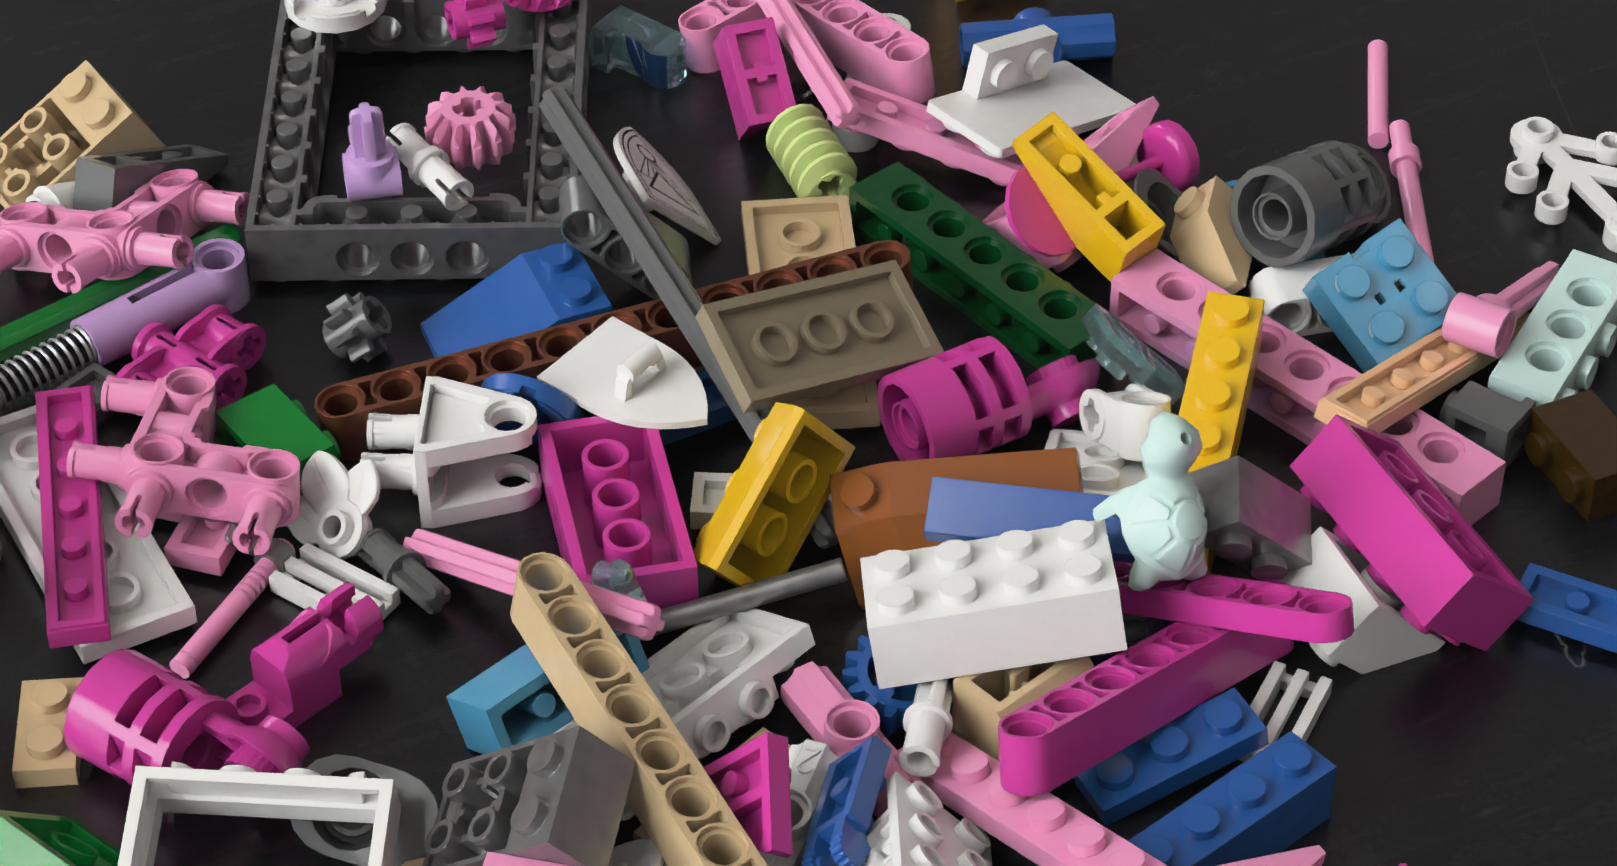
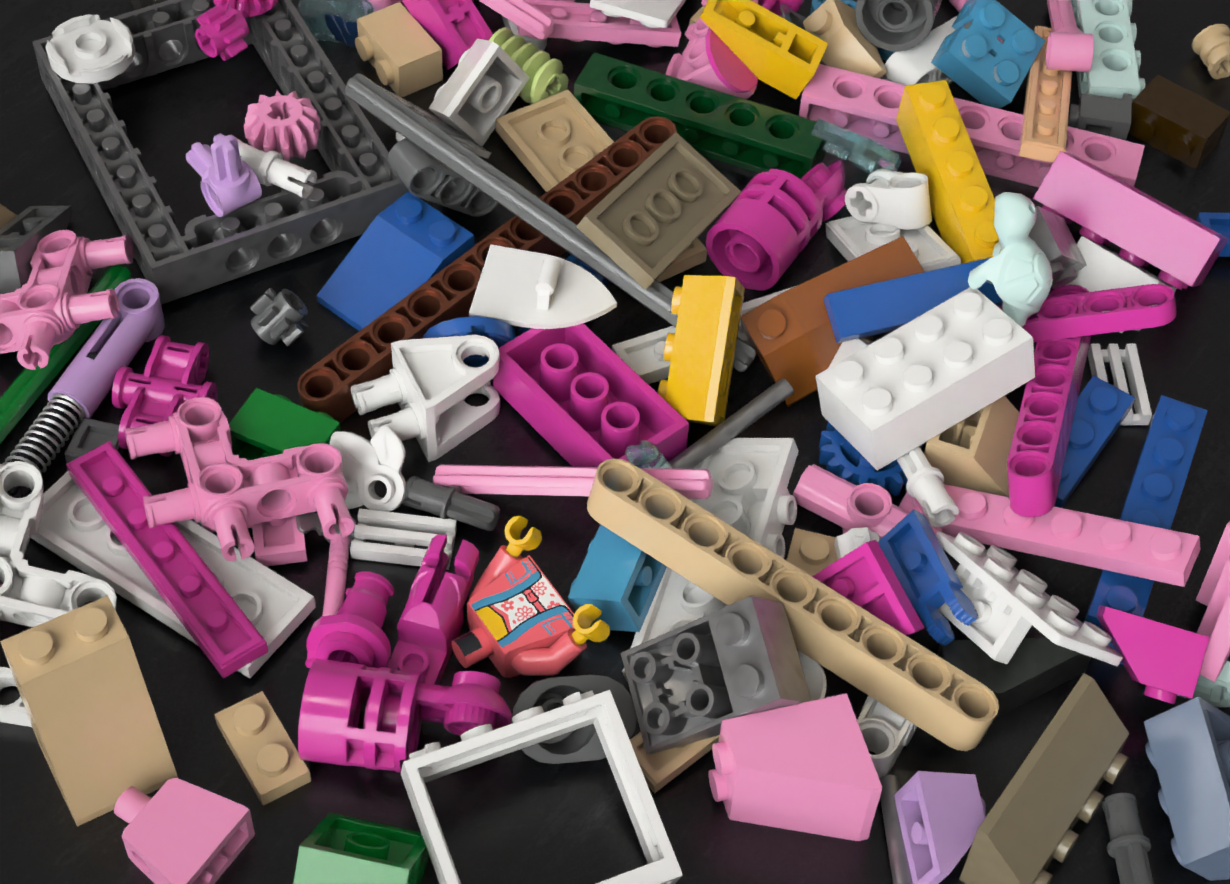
camera: 30 degrees left, 10 degrees up
(214, 647) = (355, 630): none -> dark pink piece
(391, 695) = (521, 616): none -> torso
(687, 100) = (399, 50): none -> tan brick
(730, 164) = (479, 91): none -> white slope

